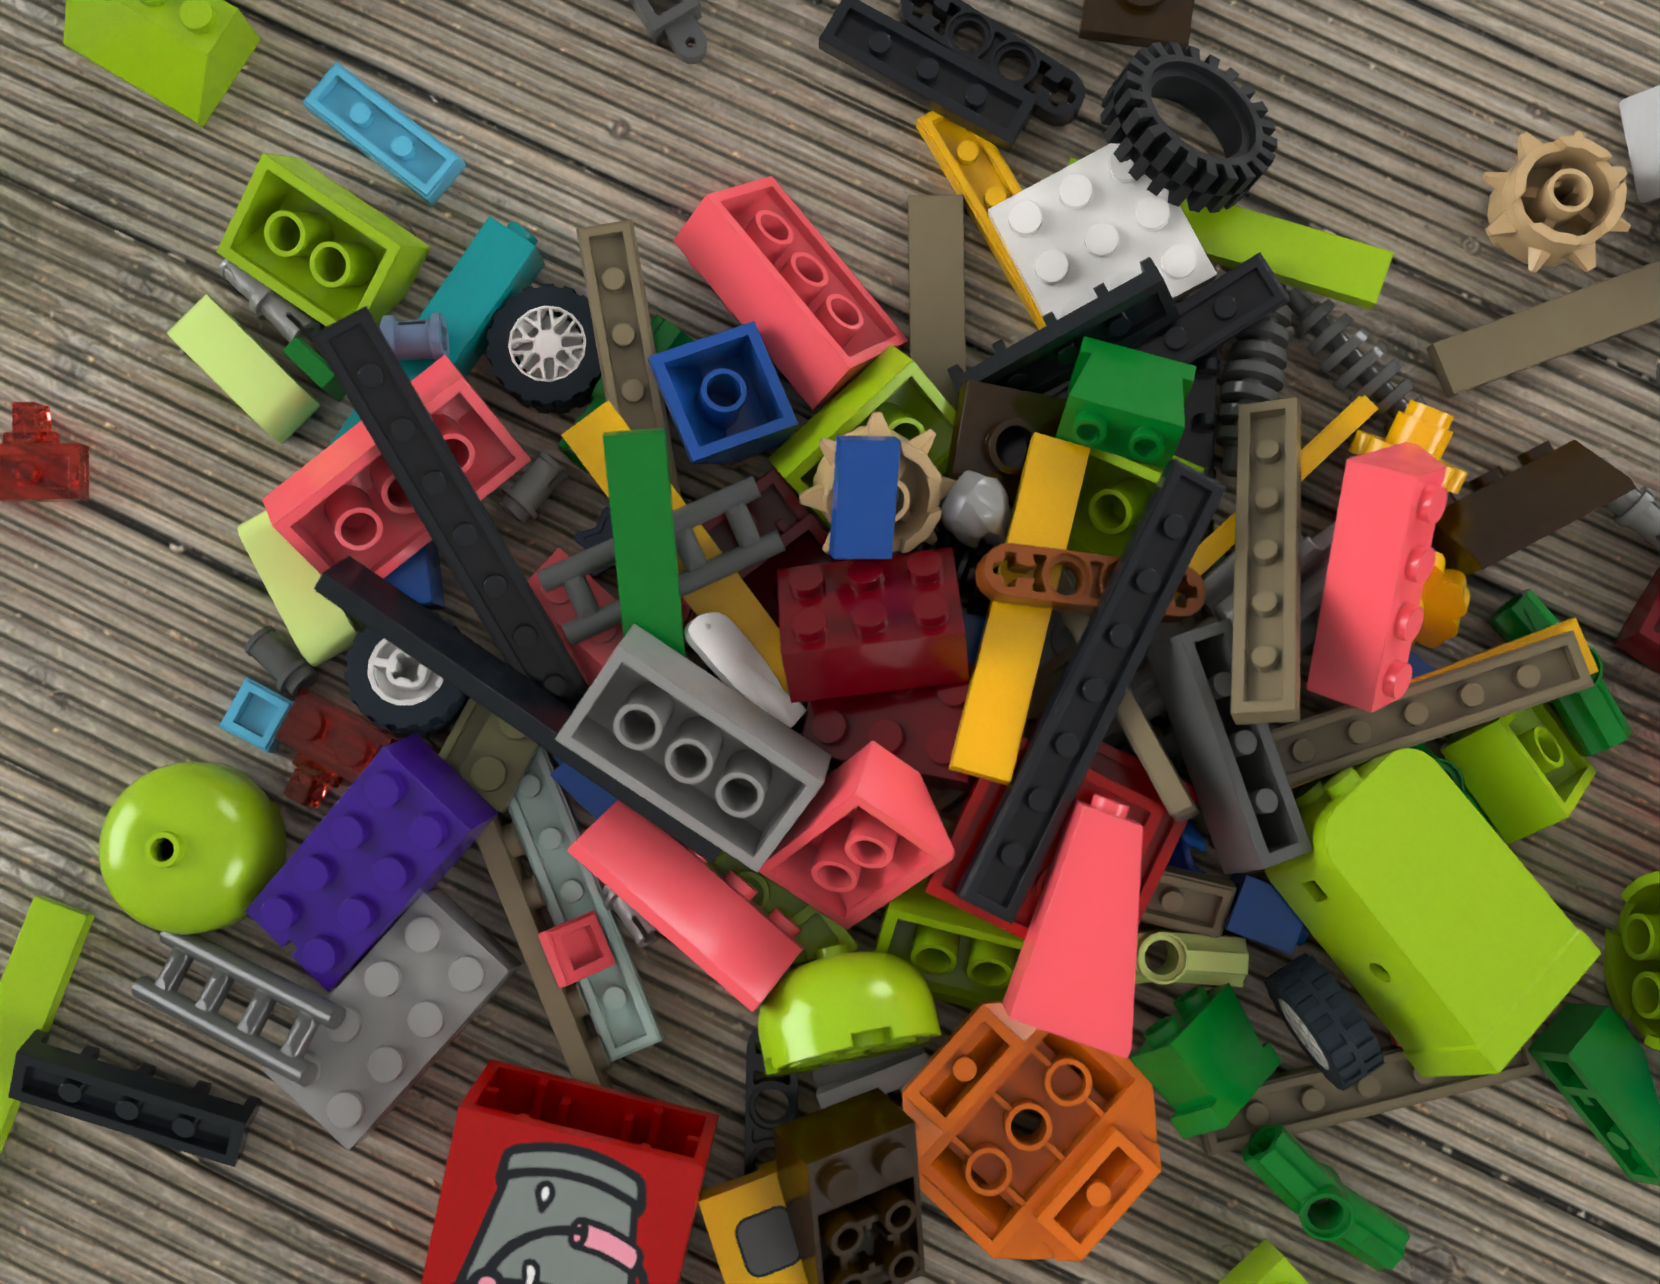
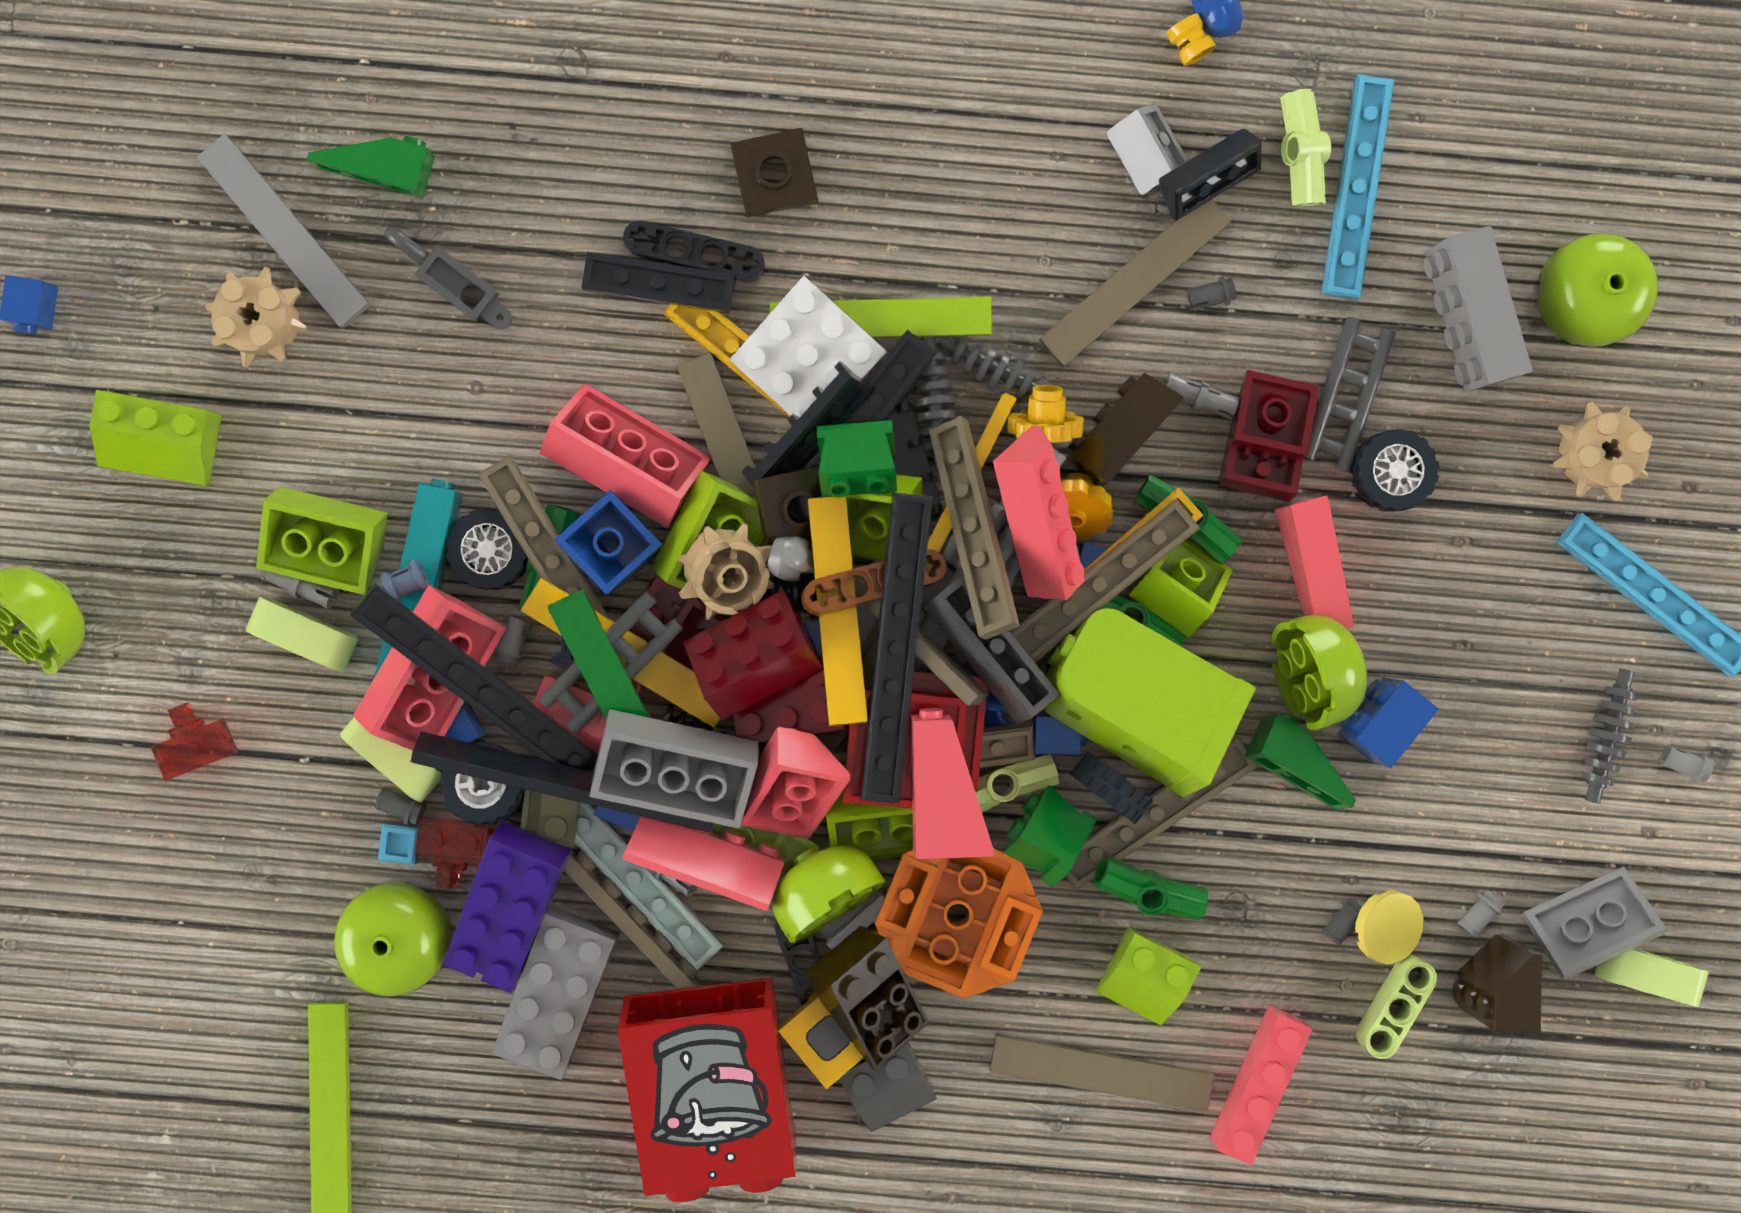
camera: 20 degrees left, 5 degrees up
(131, 1100) = (418, 1101): black hinge -> none
(245, 1036) = (472, 1037): dark grey bar -> none
(314, 366) = (341, 614): green tile -> none
(384, 134) = (327, 448): medium azure tile -> none
(576, 949) = (650, 912): coral tile -> none
(740, 665) = (683, 707): white piece -> none
(864, 497) = (718, 583): blue tile -> none
(1164, 155) = (823, 294): black tyre -> none
(1556, 202) = (1099, 207): tan brick -> none

